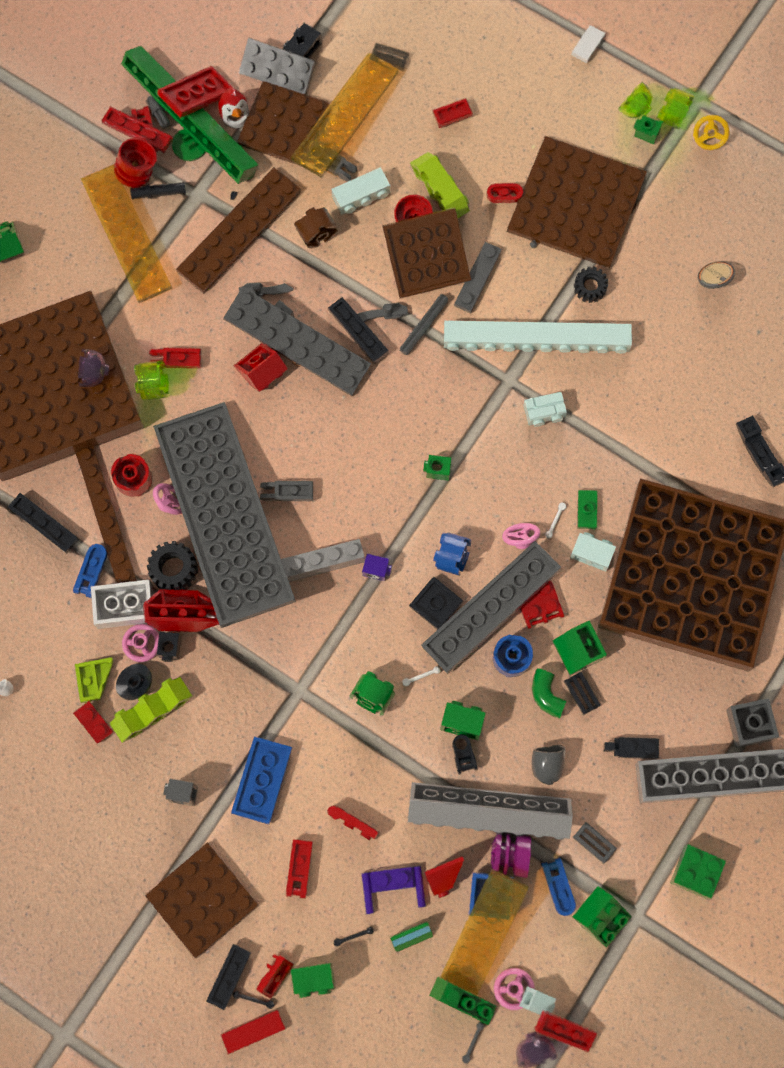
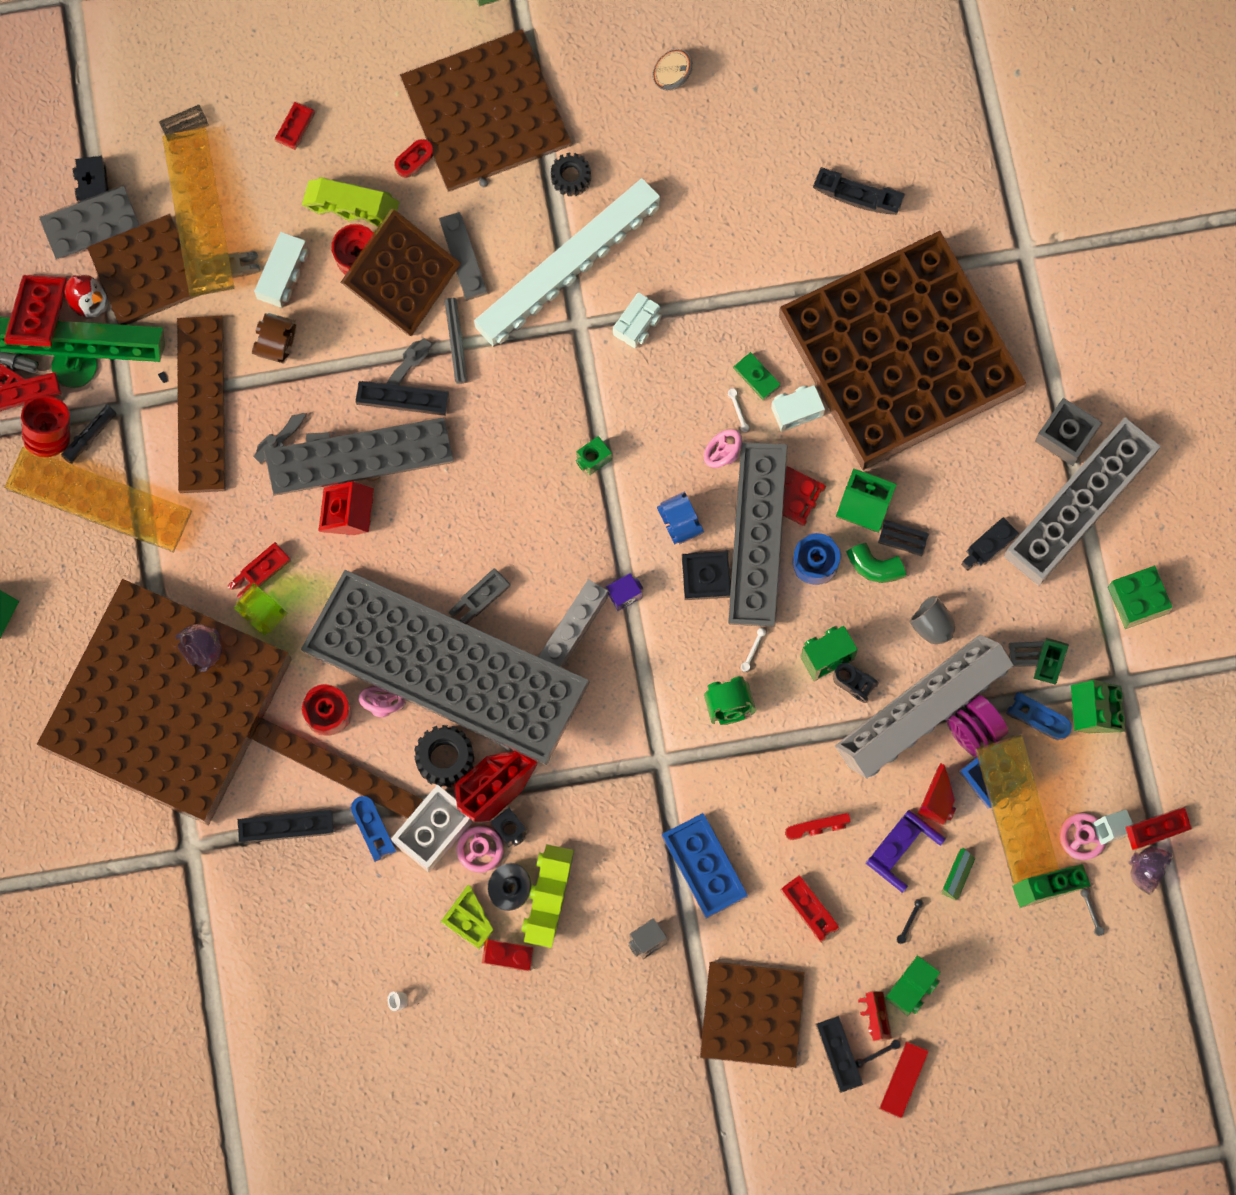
camera: 45 degrees left, 0 degrees up
(598, 858) = (1050, 660): none -> dark green slope

